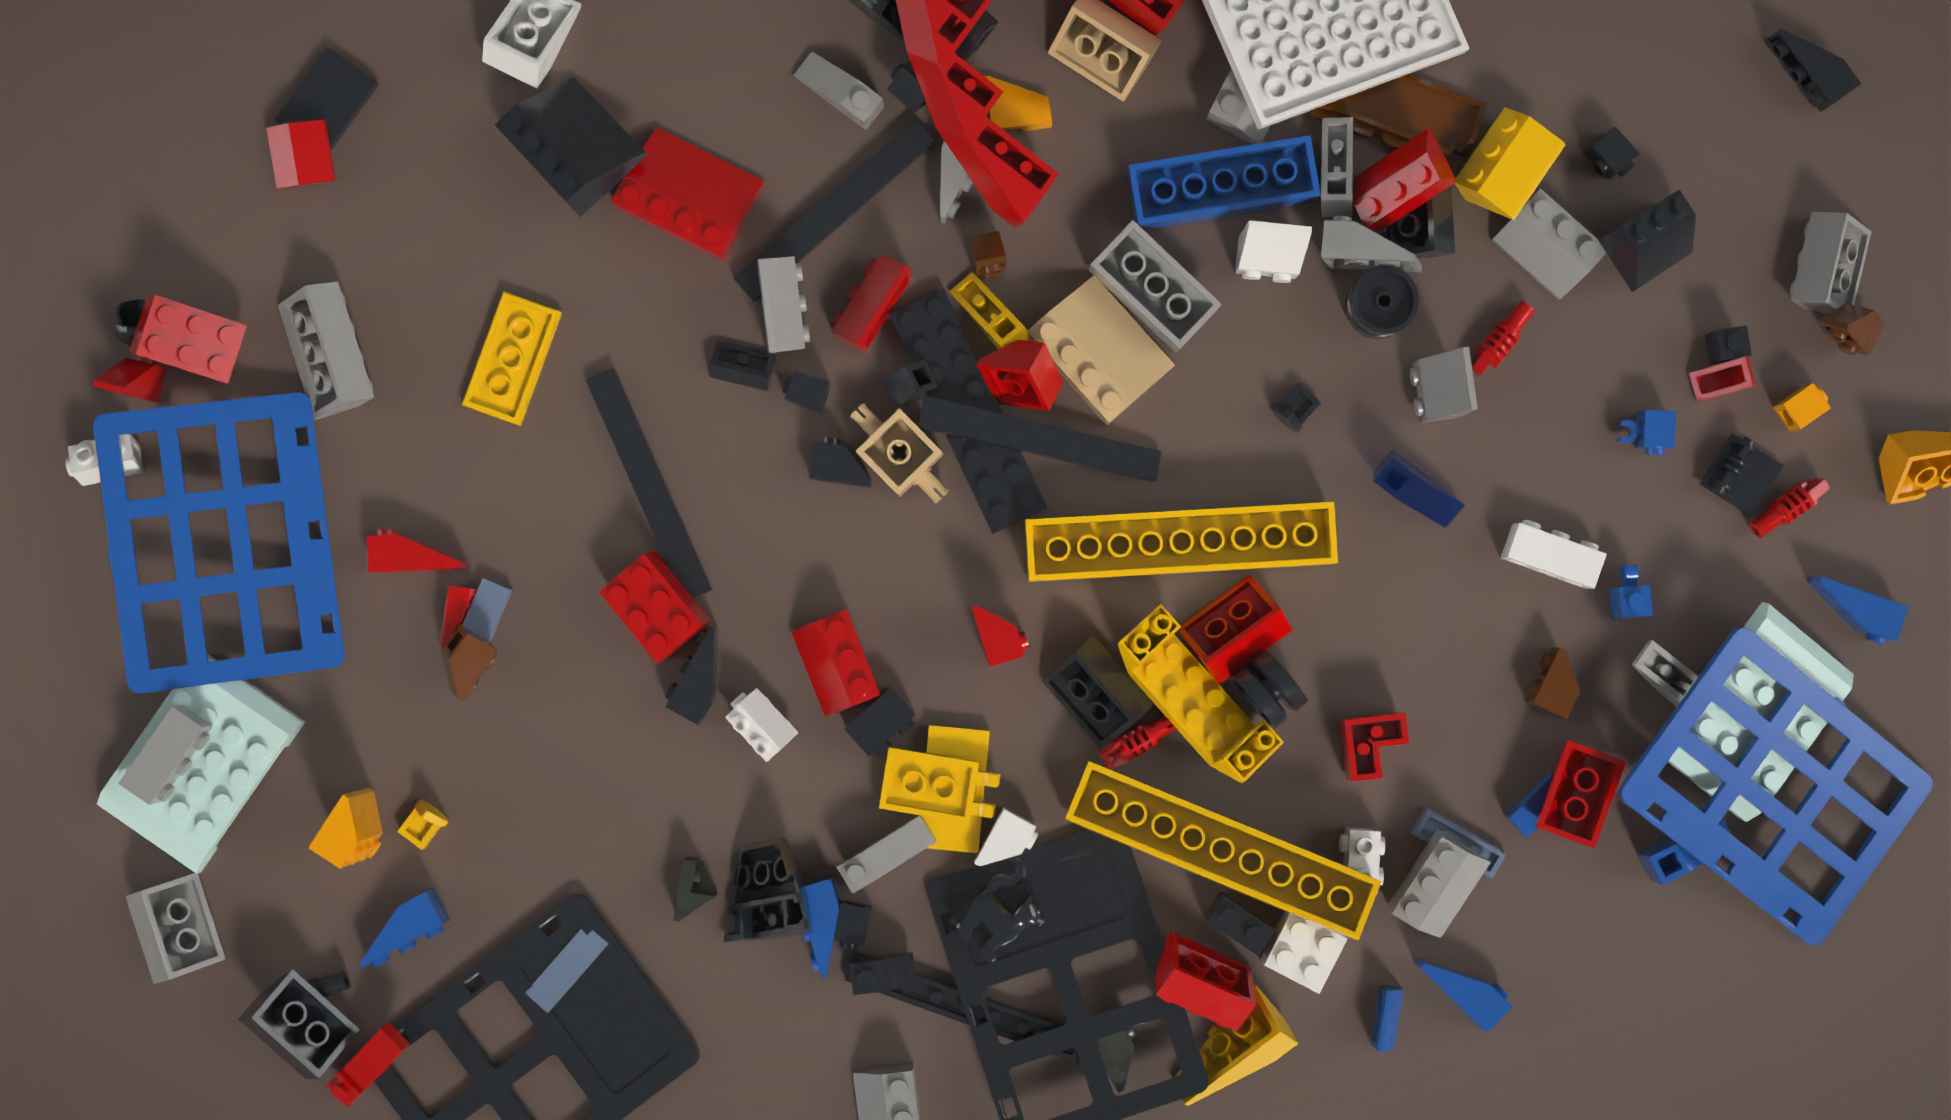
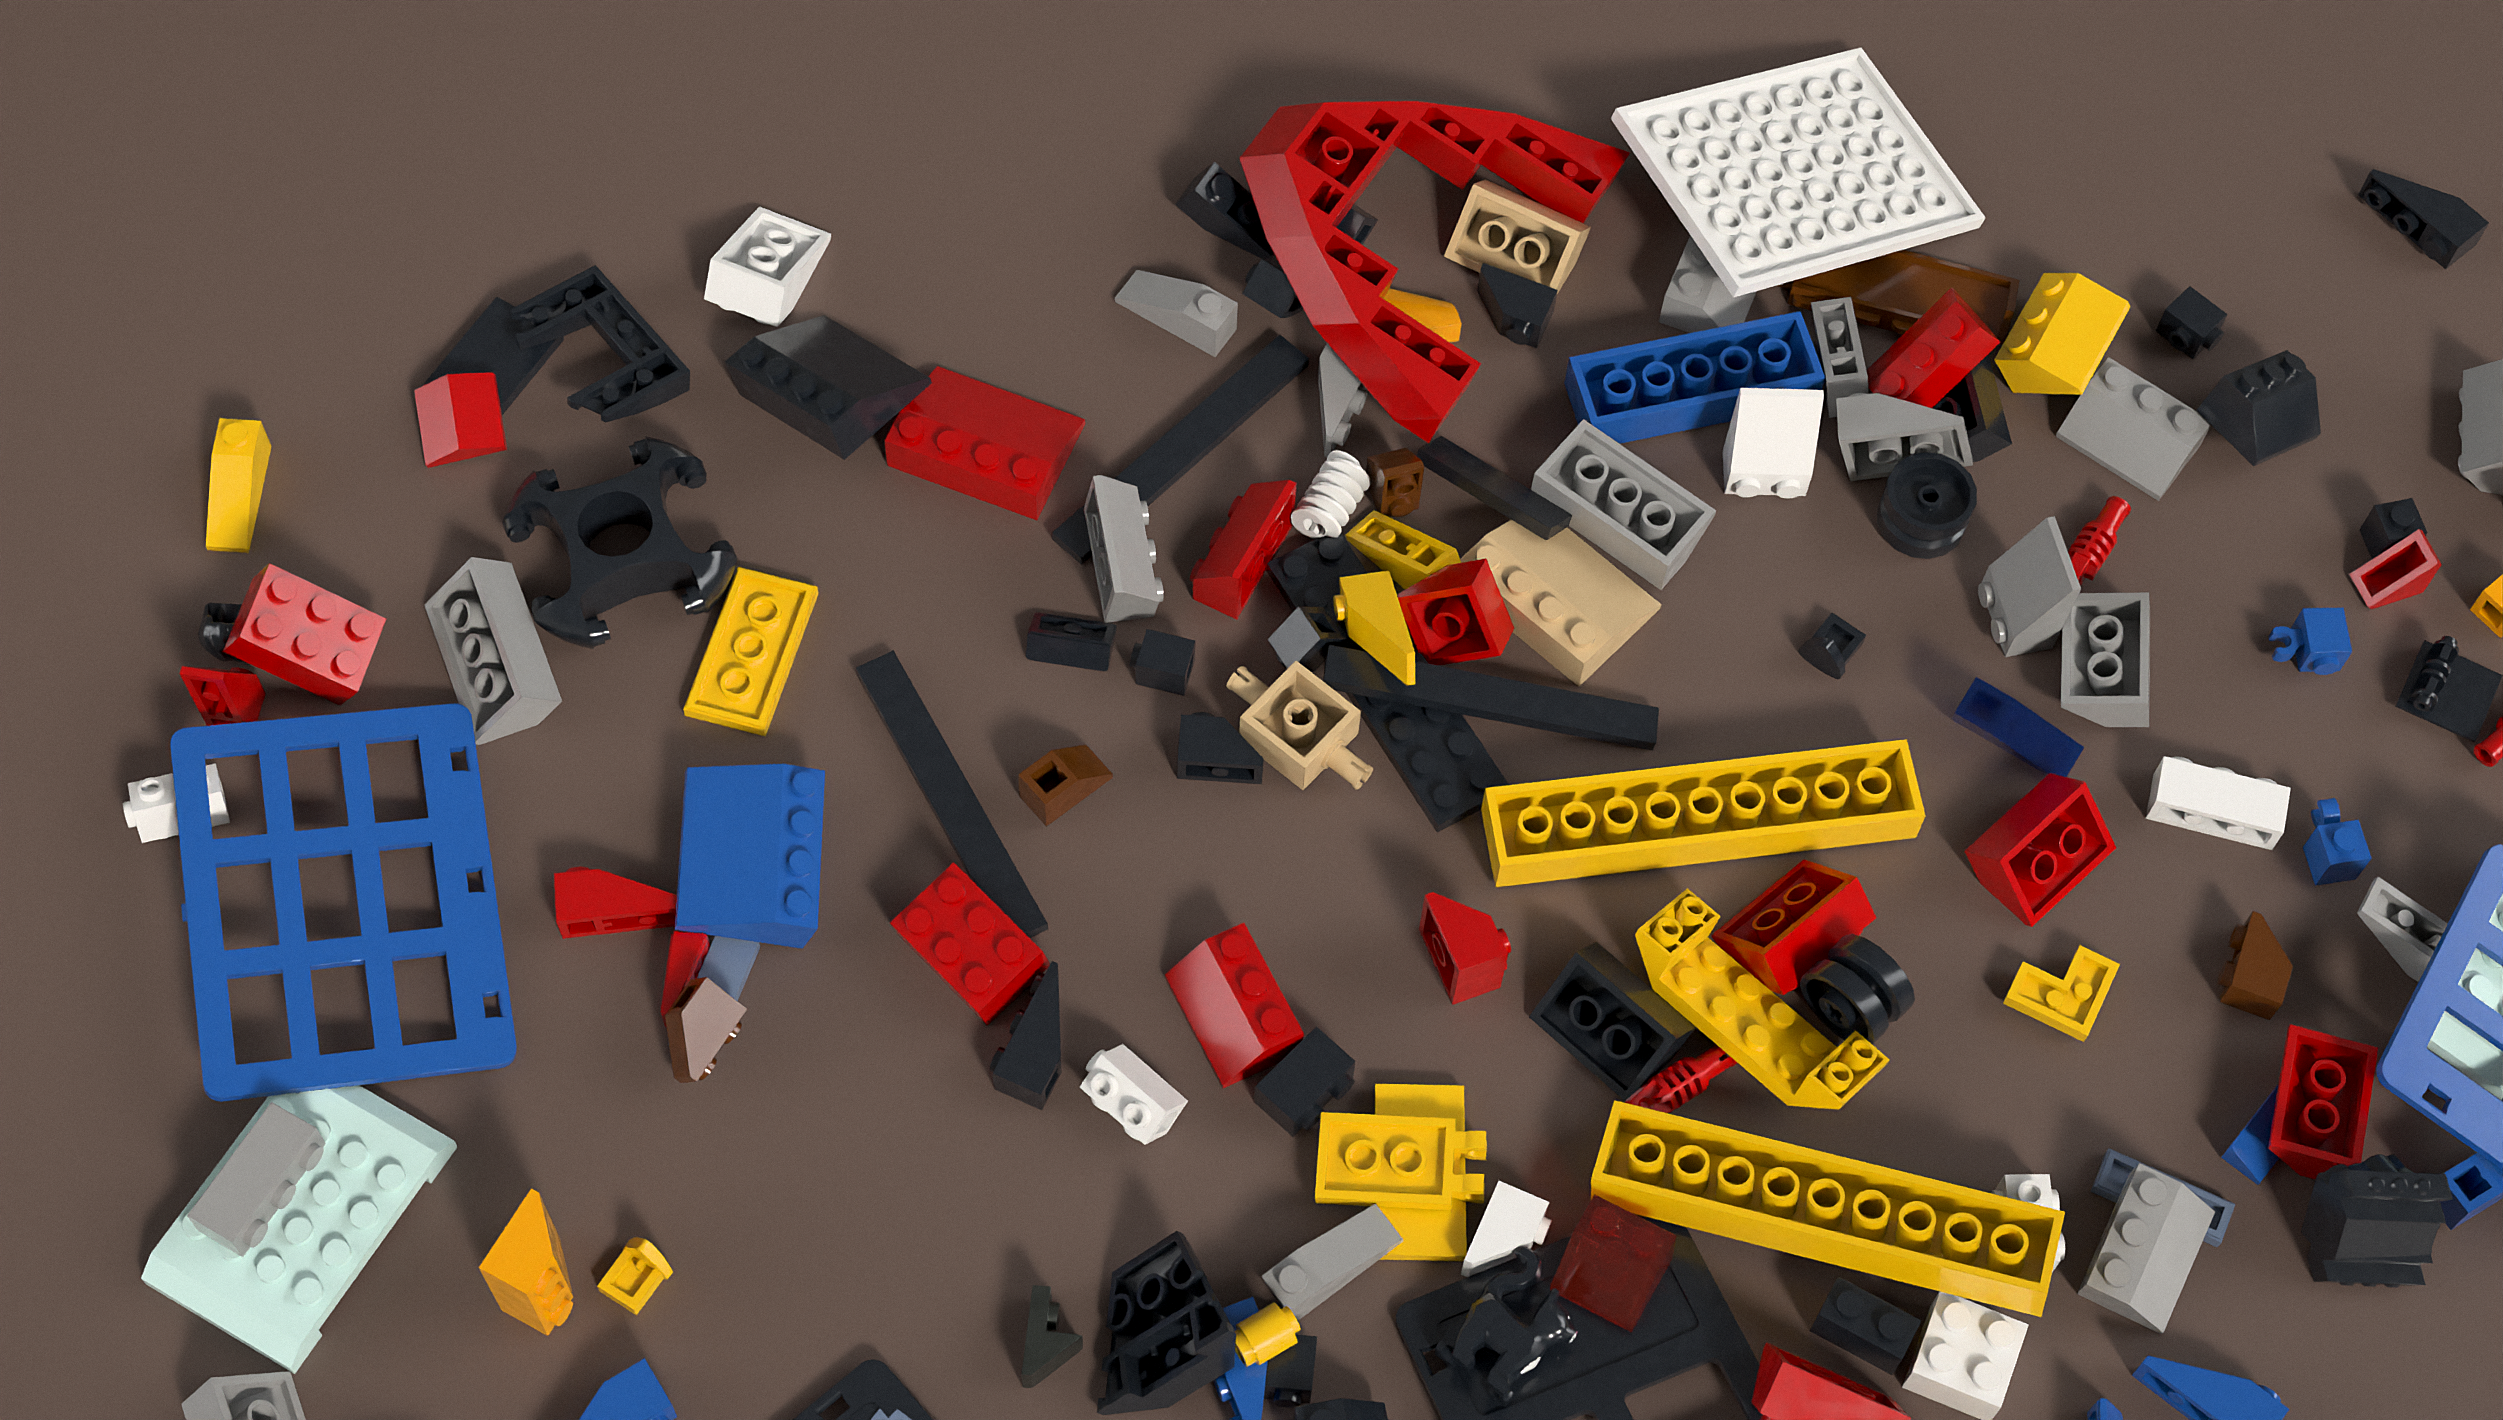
camera: 10 degrees left, 25 degrees down
(138, 199) = (236, 483): none -> yellow slope
(384, 251) = (607, 581): none -> black piece
(398, 58) = (651, 370): none -> black wedge
(503, 528) = (751, 853): none -> blue slope
(729, 482) = (1061, 781): none -> reddish brown slope
(834, 911) = (1265, 1334): none -> yellow brick
(939, 264) = (1331, 497): none -> white piece
(959, 380) = (1376, 621): none -> yellow slope
(1062, 265) = (1494, 488): none -> black tile
(1074, 872) = (1613, 1262): none -> clear red slope
(1097, 105) = (1516, 304): none -> black slope
(1362, 738) = (2004, 1050): red brick -> none
(1419, 581) = (2041, 847): none -> red slope
(1421, 699) = (2066, 1003): none -> yellow plate
(1493, 439) = (2107, 659): none -> light grey slope
(1597, 884) = (2373, 1223): none -> black slope

